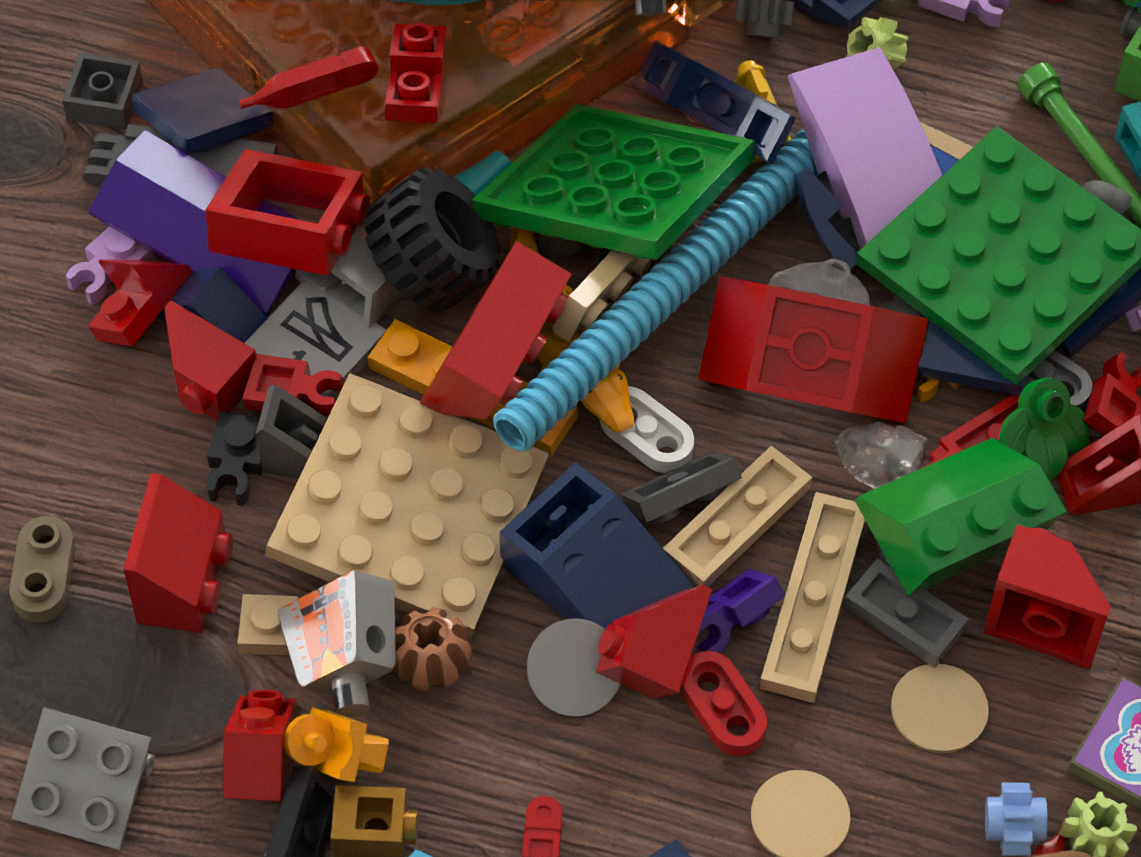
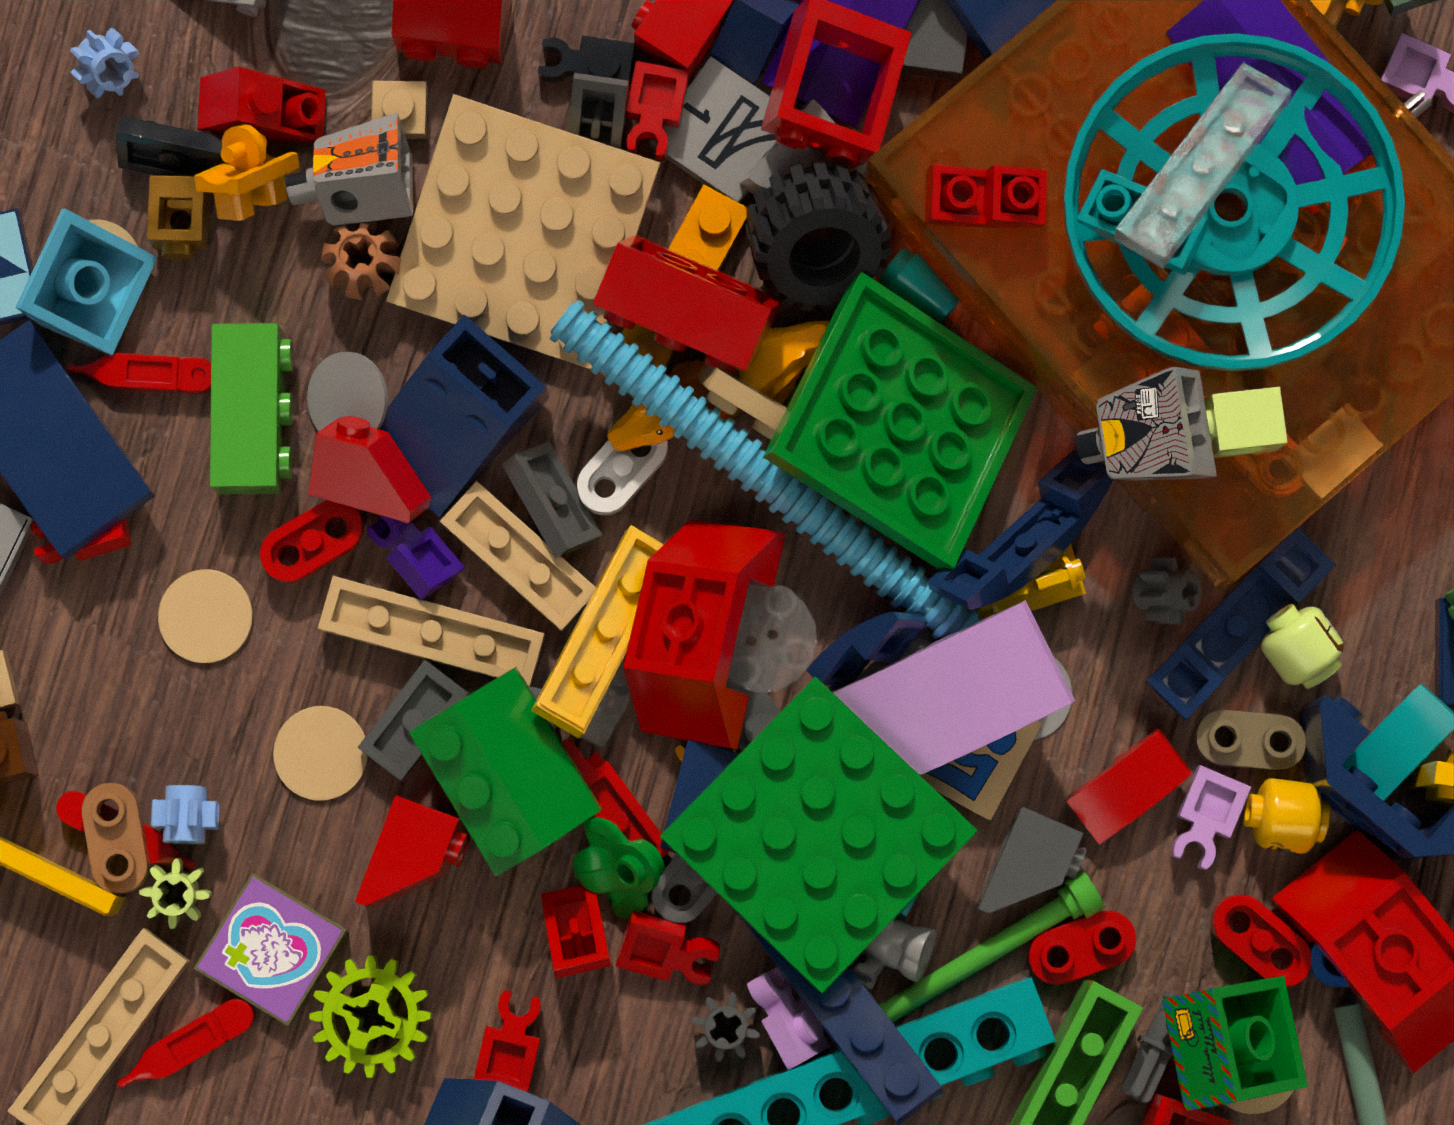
camera: 85 degrees right, 25 degrees up
(316, 79) = (970, 91): red piece -> none
(584, 758) = (250, 408): none -> bright green brick
(816, 431) = (597, 639): none -> yellow tile
(879, 34) = (1119, 713): yellowish green gear -> none
(944, 46) = (1129, 786): none -> red slope
(1017, 109) = (1031, 860): none -> dark grey slope
(1088, 83) = (1082, 947): none -> red plate

